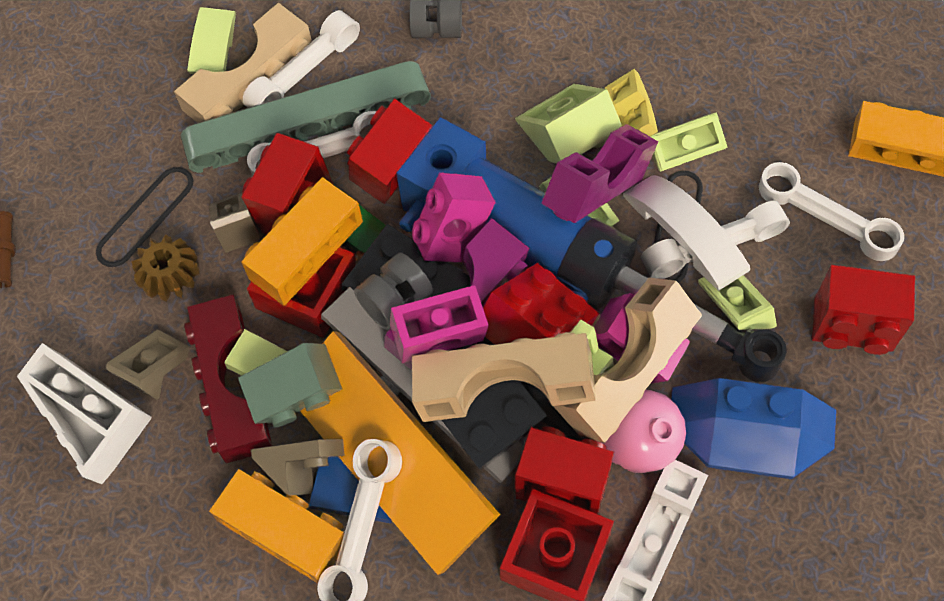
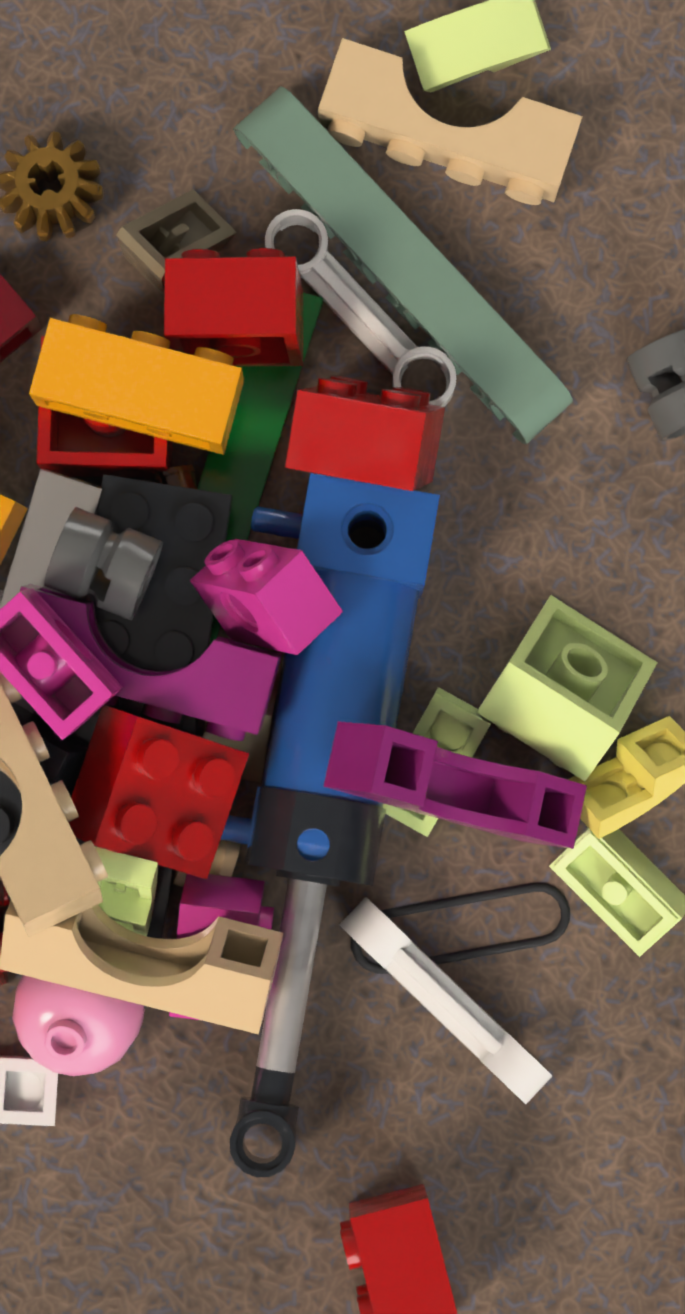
camera: 60 degrees right, 20 degrees up
(153, 227) = (129, 127): black piece -> none
(335, 34) = (568, 233): white piece -> none
(691, 227) = (442, 949): white slope -> none
(742, 304) = (347, 1069): yellowish green slope -> none
(755, 426) = (156, 1166): blue wedge -> none
(831, 212) = (581, 1161): white piece -> none

